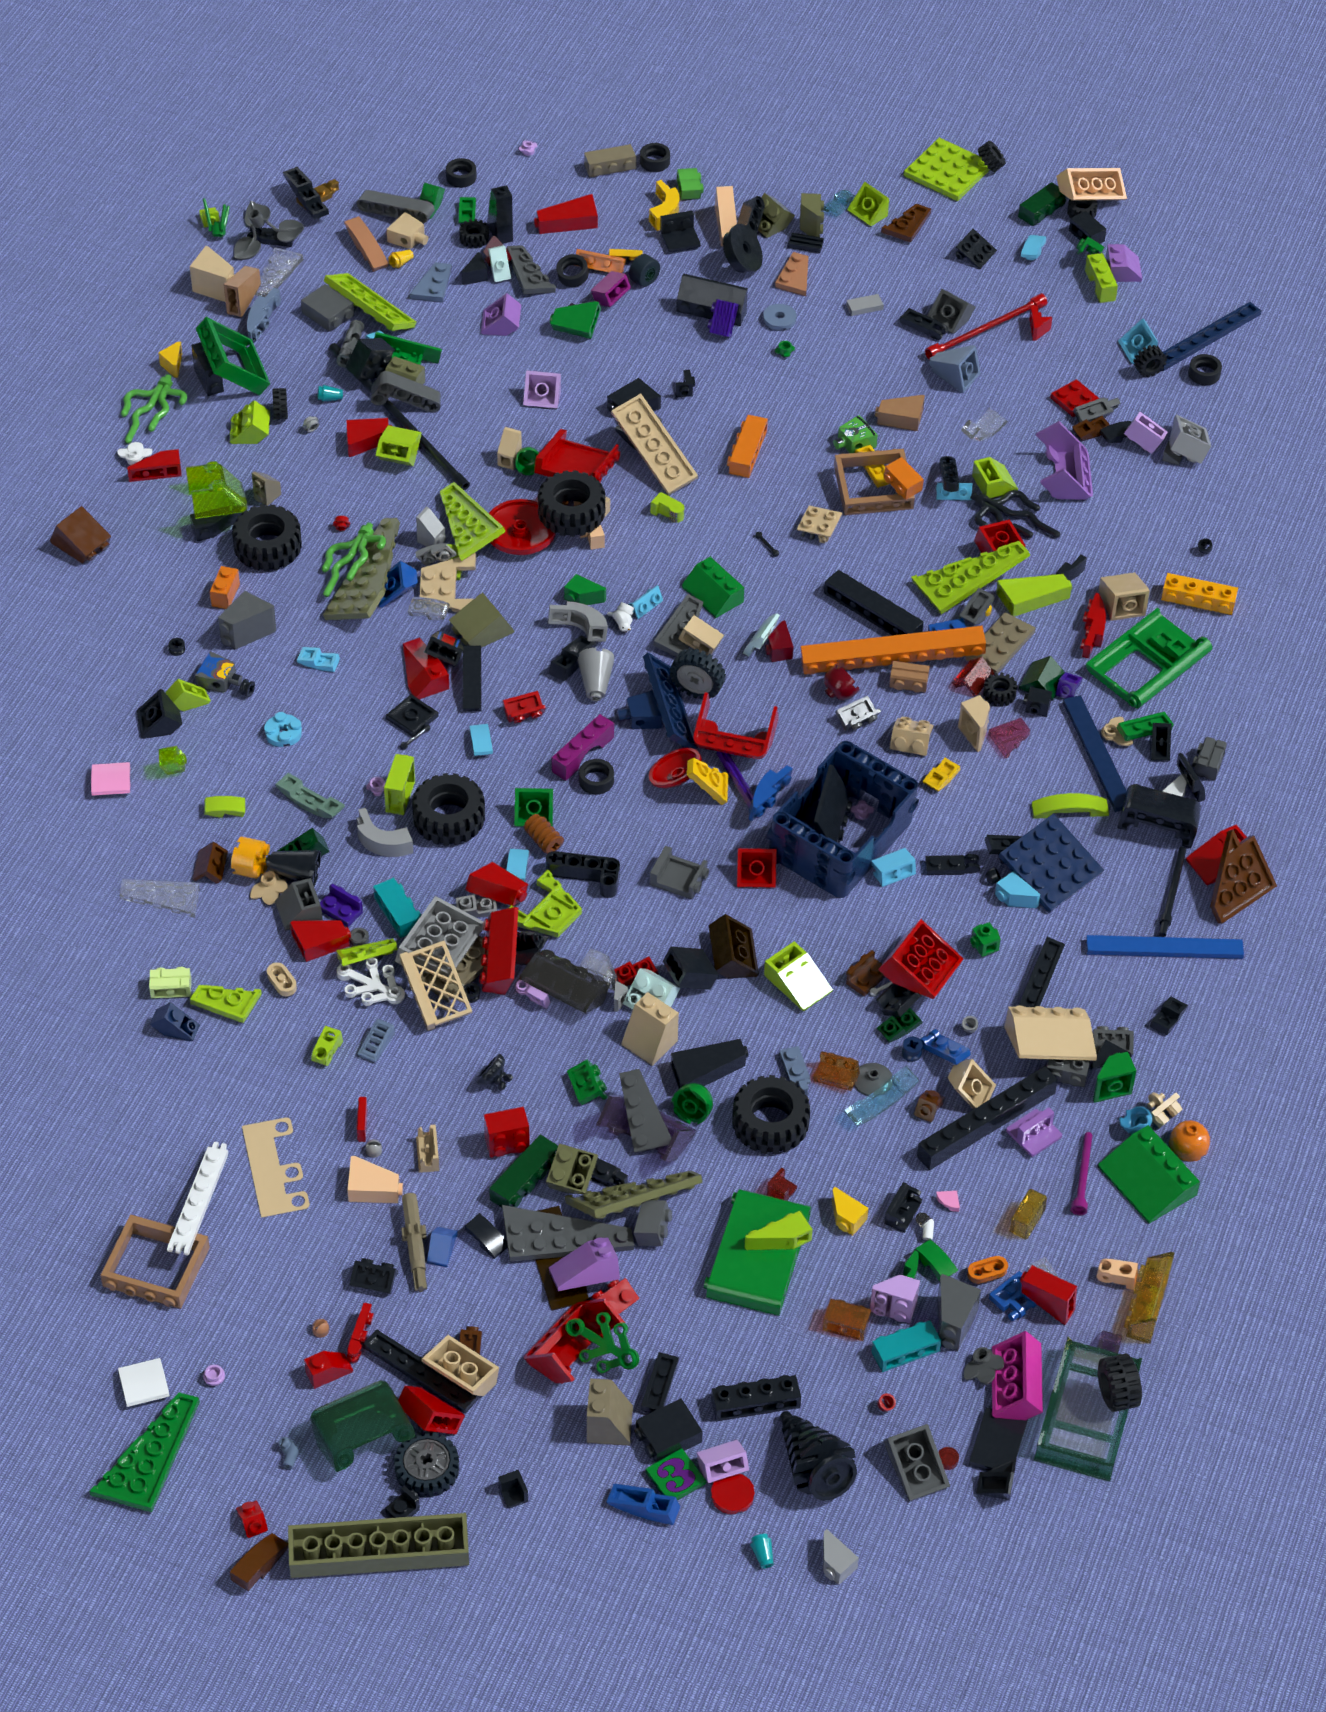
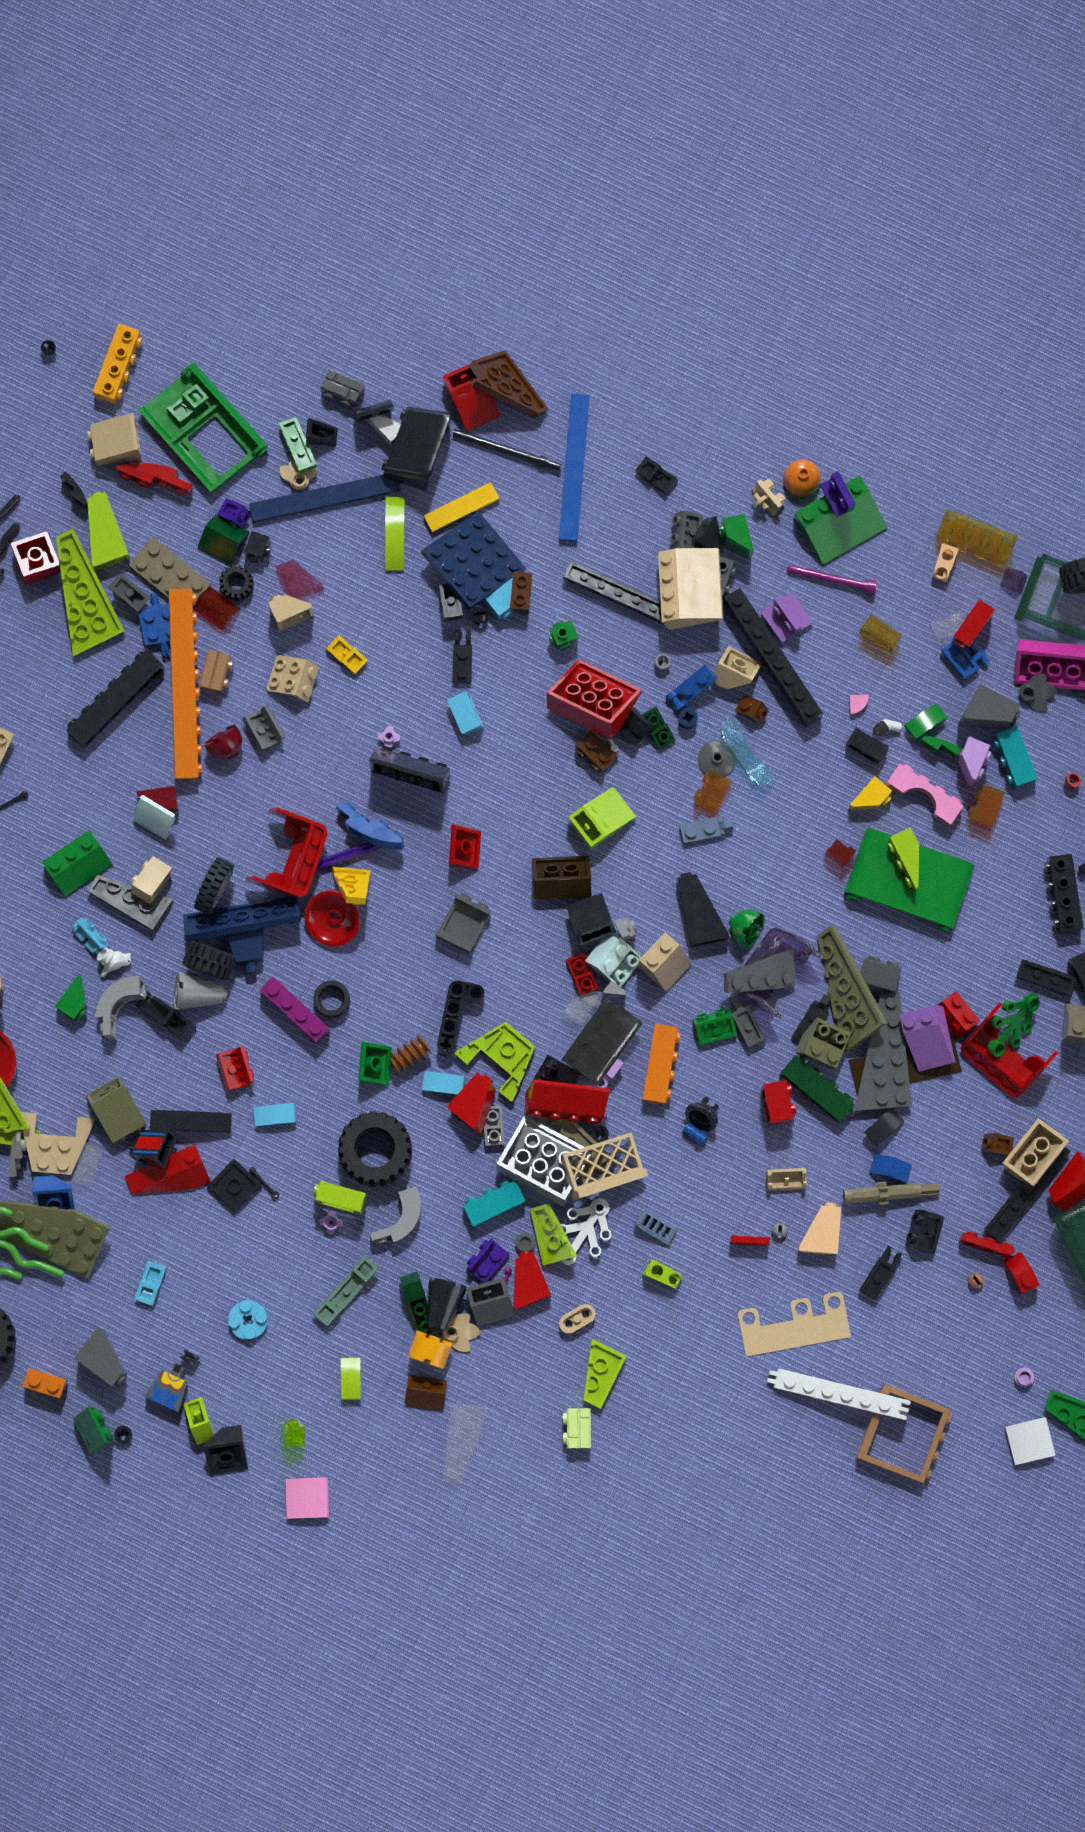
camera: 90 degrees left, 30 degrees up
(174, 1023) = (628, 1423): dark blue slope -> none
(180, 616) = (93, 1430): none -> green slope
(328, 1237) = (879, 1275): none -> black hinge
(470, 1074) = (695, 1133): none -> blue pin
(544, 1036) = (660, 1063): none -> orange brick
(587, 1111) = (746, 1023): none -> dark grey hinge
(625, 674) = (208, 960): none -> black tyre
(682, 997) = (626, 928): none -> light grey slope
(771, 1135) = (770, 831): black tyre -> none
(823, 859) = (454, 800): dark blue piece -> none
(842, 1279) = (905, 781): none -> bright pink arch
(986, 1269) = (937, 677): orange plate -> none
(1024, 904) = (521, 591): none -> reddish brown bracket
(1106, 858) = (461, 507): none -> yellow tile
(1136, 1119) = (782, 522): dark azure hair -> none
(1173, 1153) = (838, 495): none -> dark purple bracket

